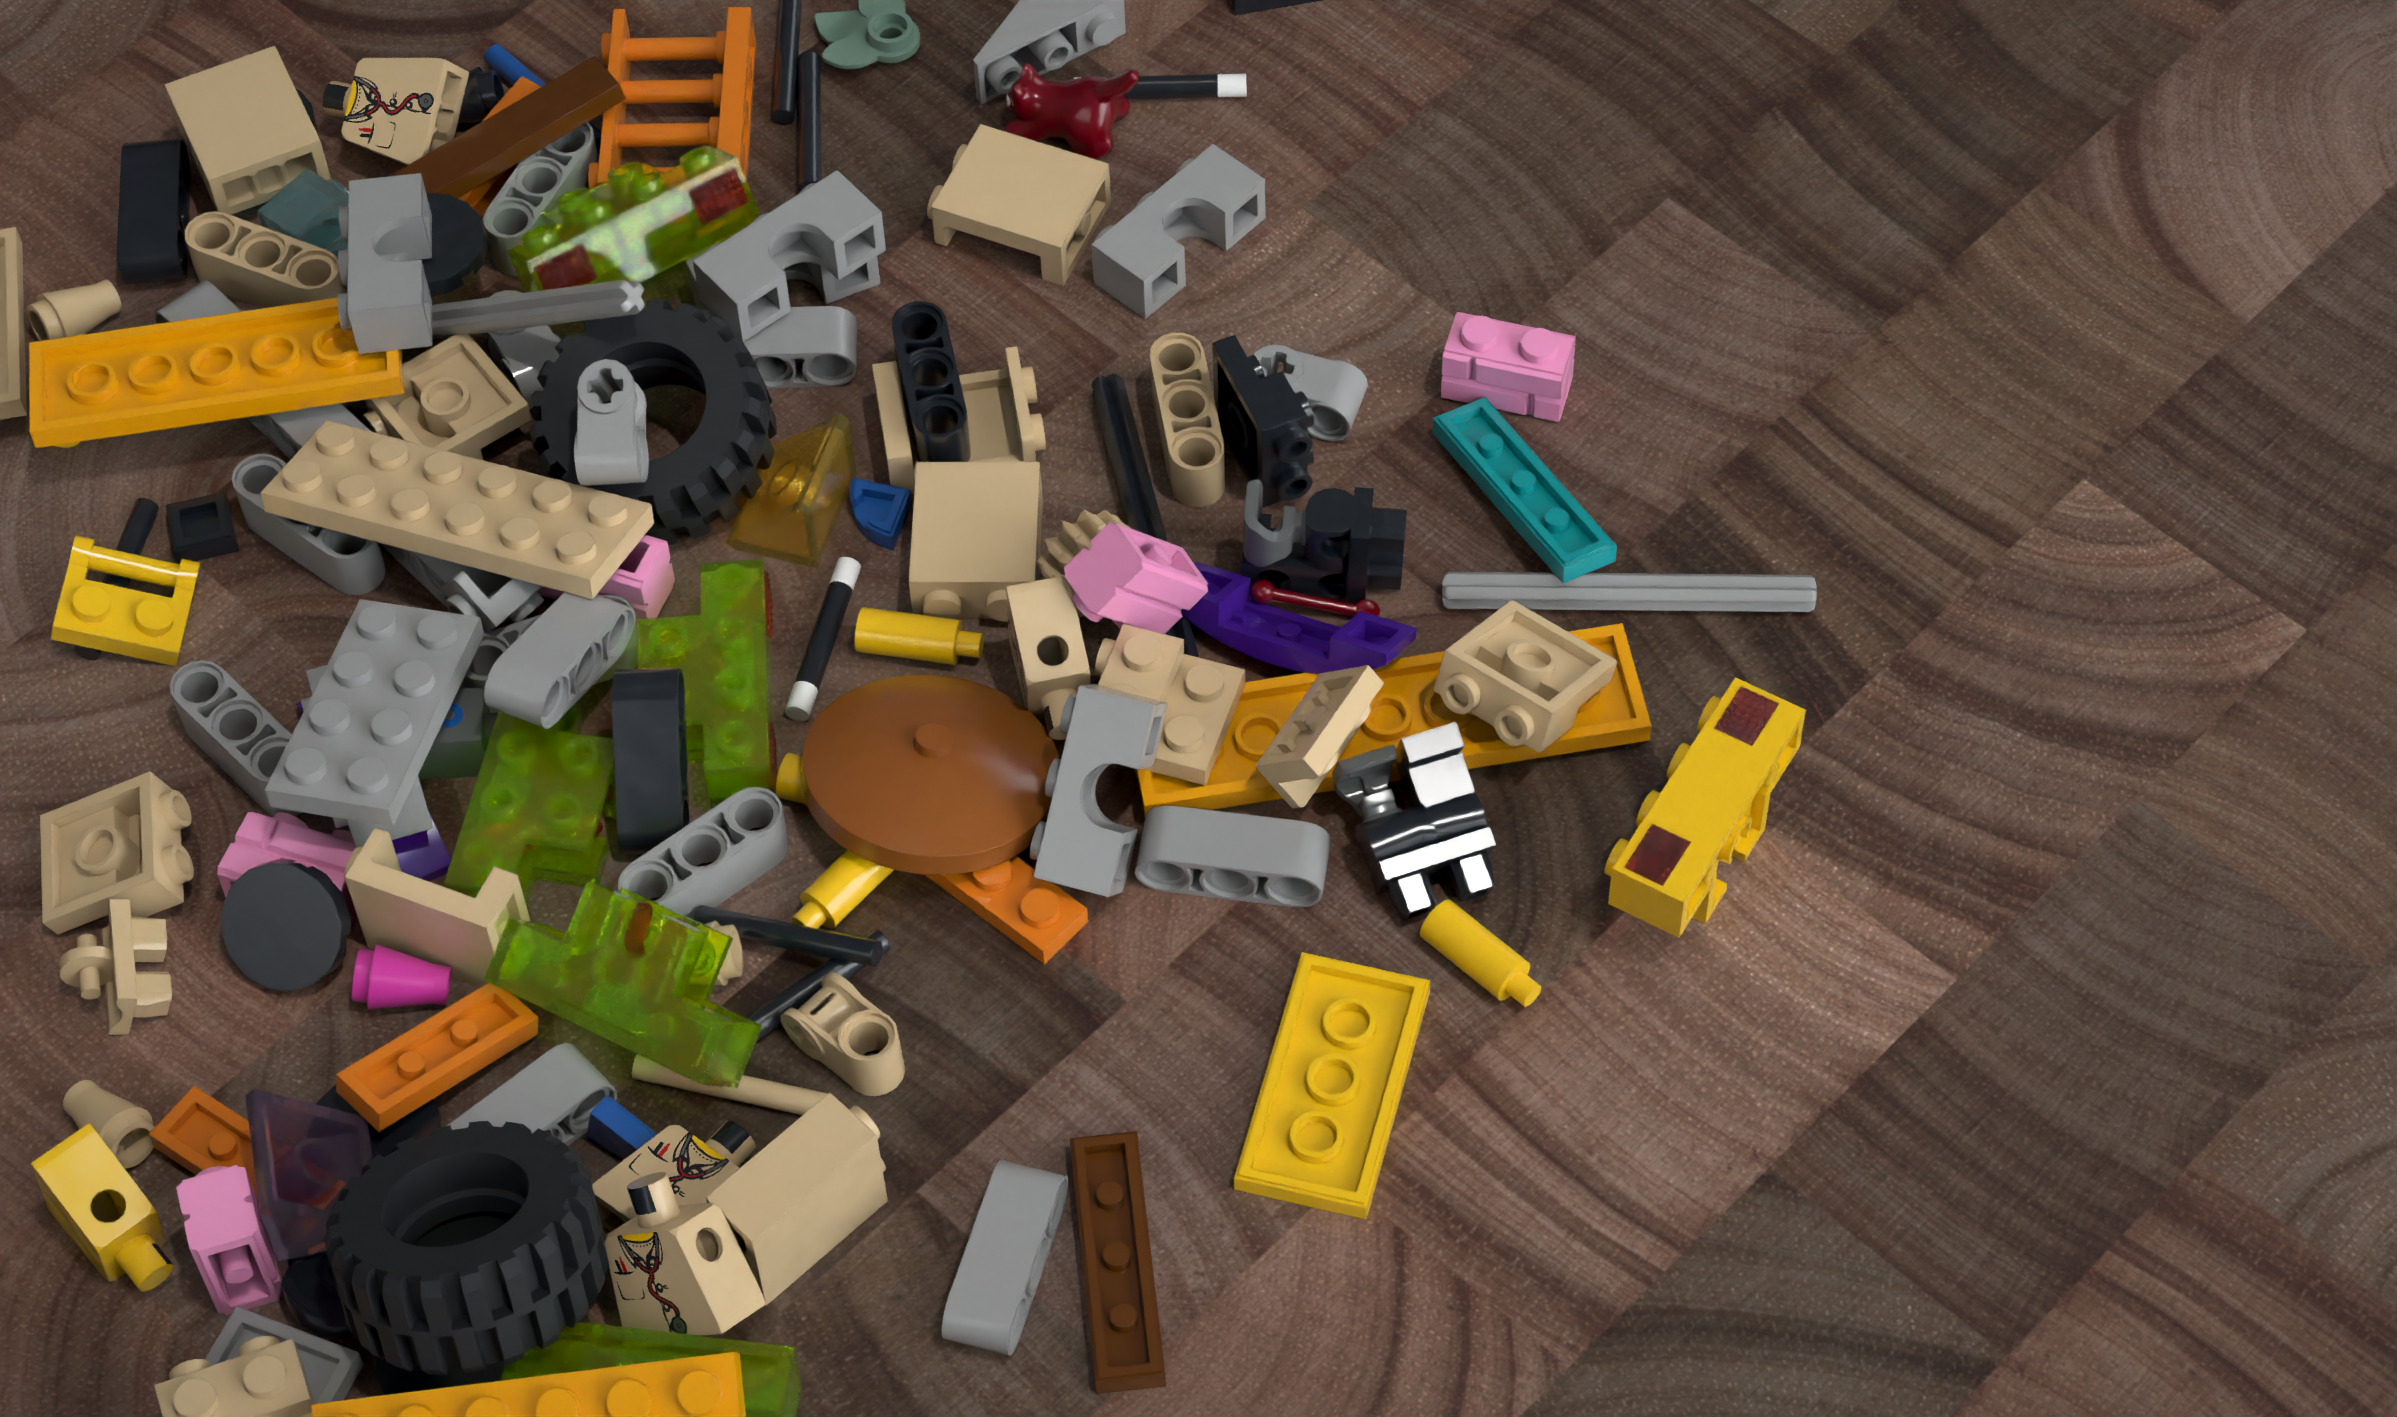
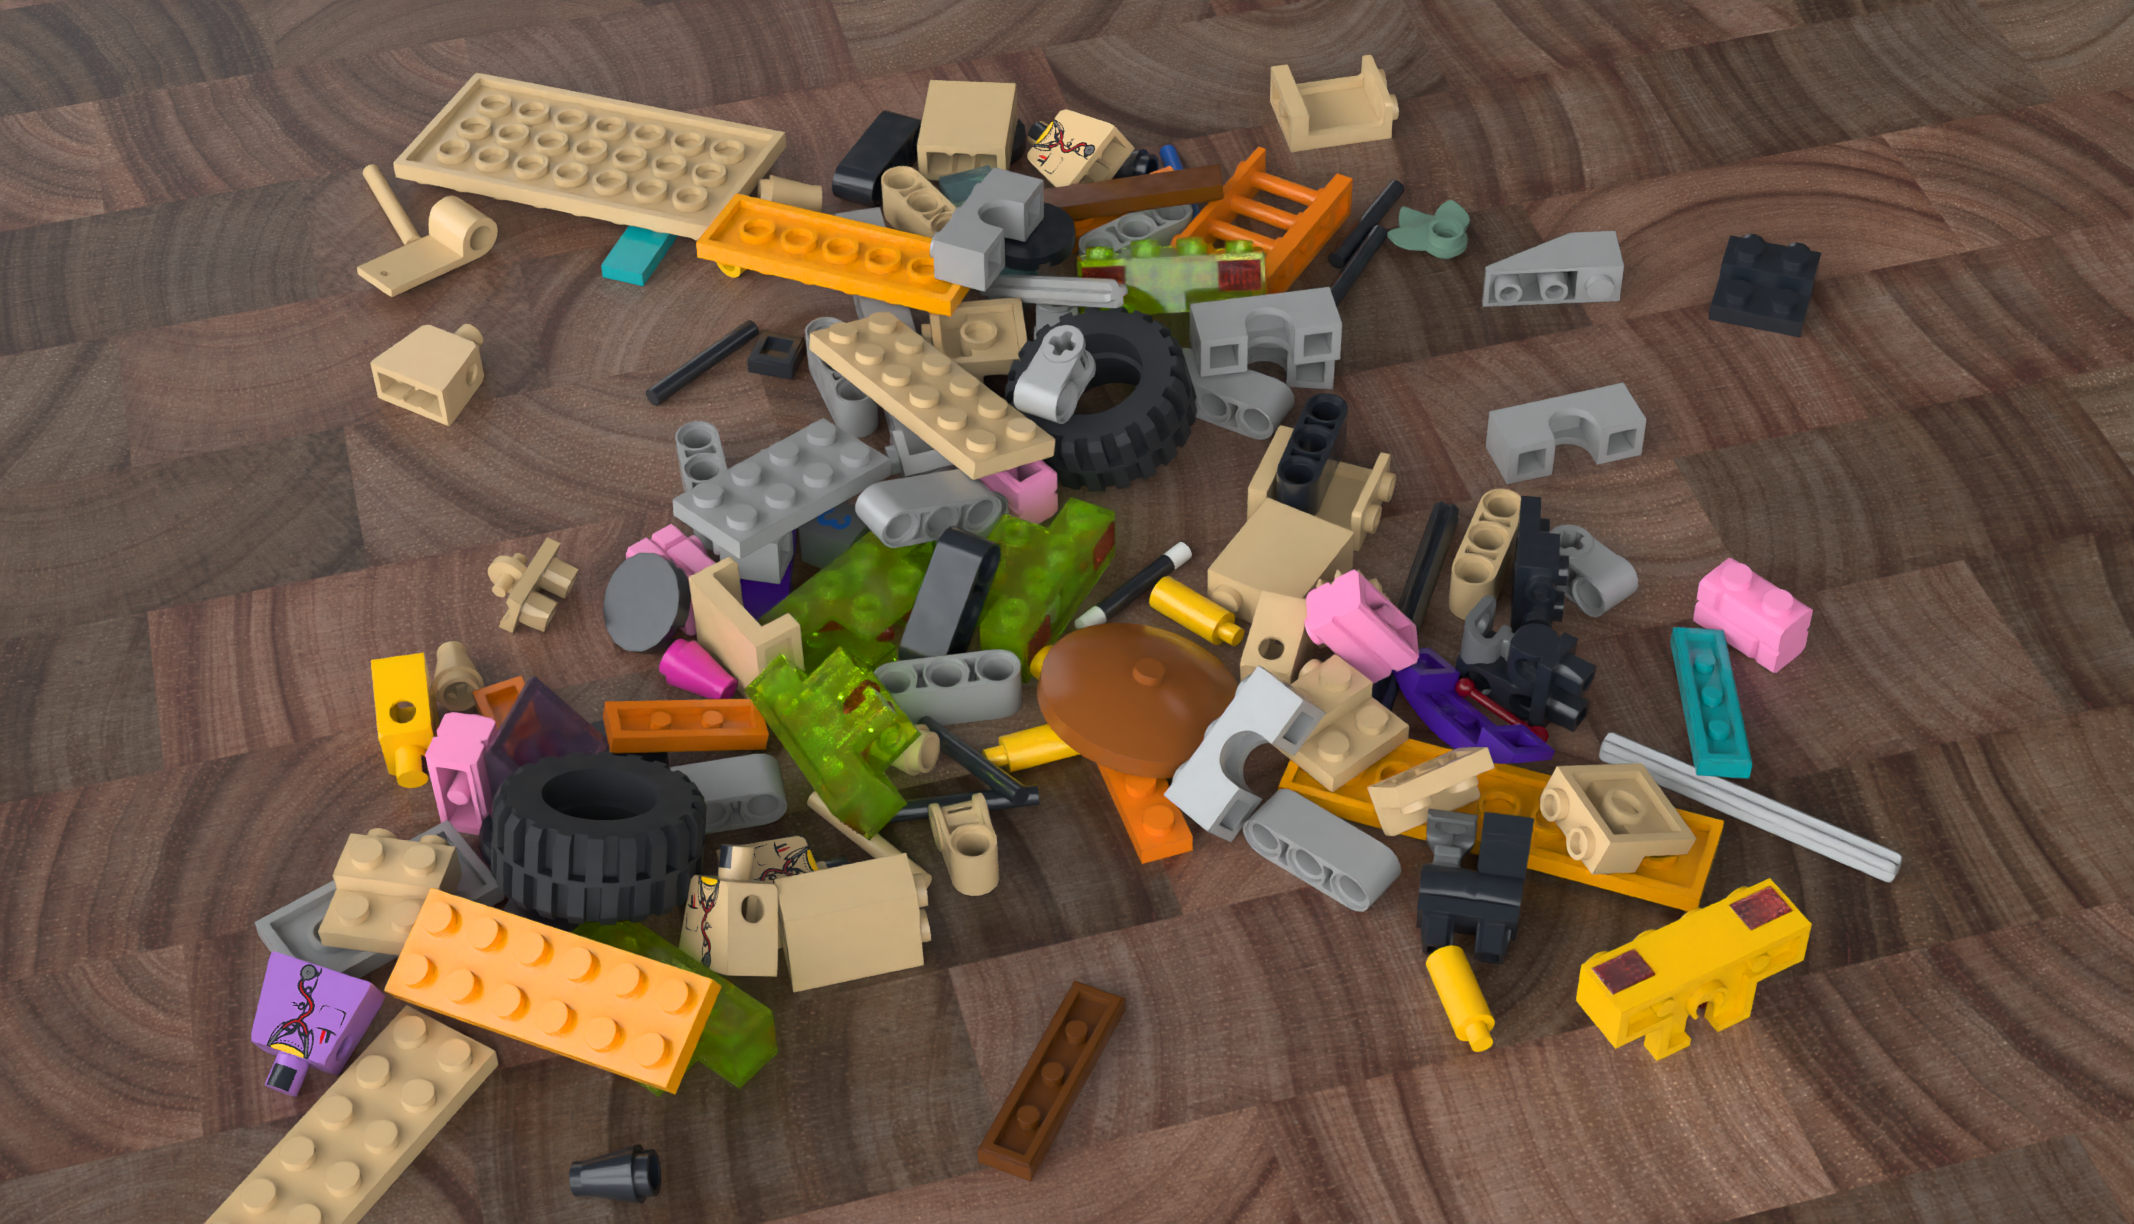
camera: 30 degrees right, 10 degrees down
(114, 848) = (579, 513): tan plate -> none
(120, 617) = (684, 382): yellow plate -> none
(617, 1129) = (767, 821): blue tile -> none
(799, 495) = (1180, 493): clear yellow slope -> none
(879, 510) = (1226, 522): blue tile -> none
(1004, 1257) = (971, 1035): light grey beam -> none
(1023, 198) = (1465, 369): tan panel -> none
(1070, 109) = (1538, 328): dark red animal -> none
(1188, 86) = (1619, 341): black bar -> none
(1332, 1086) = (1292, 1037): yellow tile -> none

